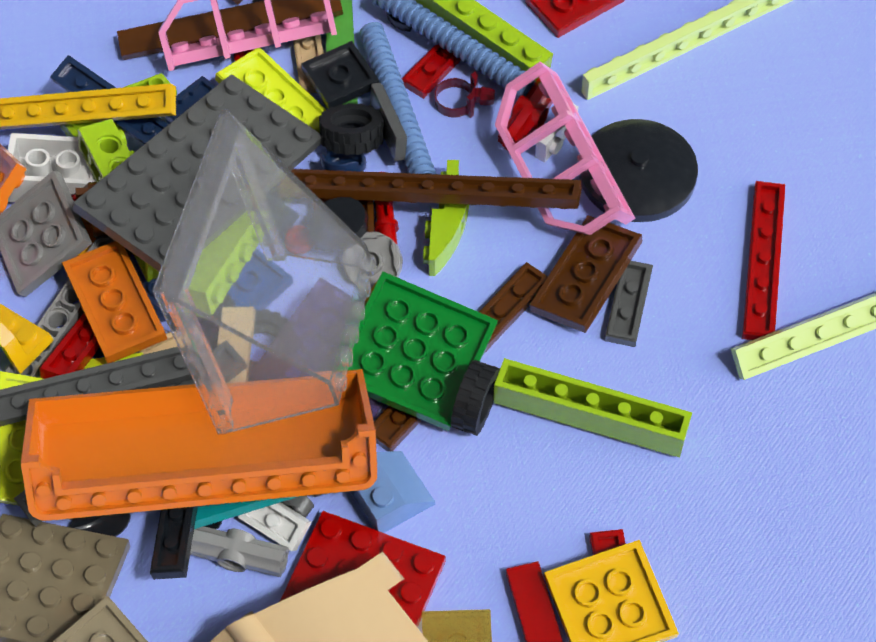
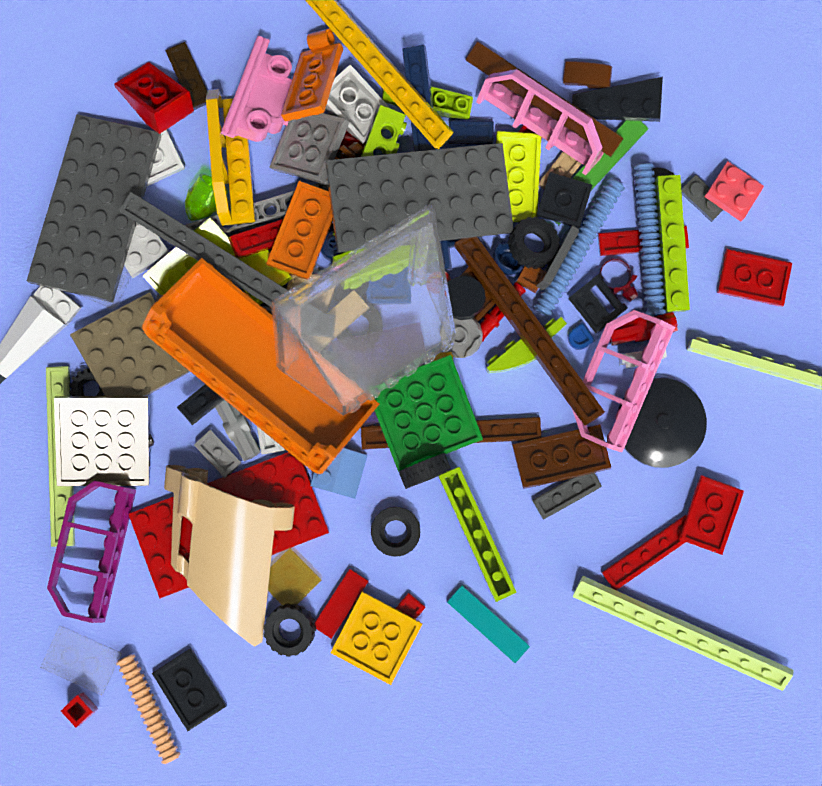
camera: 50 degrees right, 25 degrees up
(241, 595) = (217, 454): none -> light grey plate
(381, 161) = (529, 278): none -> dark orange plate
(466, 135) = (591, 307): none -> black plate
(484, 166) = (580, 337): none -> blue tile
(510, 513) = (378, 535): none -> black tyre
(699, 484) = (488, 624): none -> teal tile
(774, 194) = (711, 515): none -> red tile

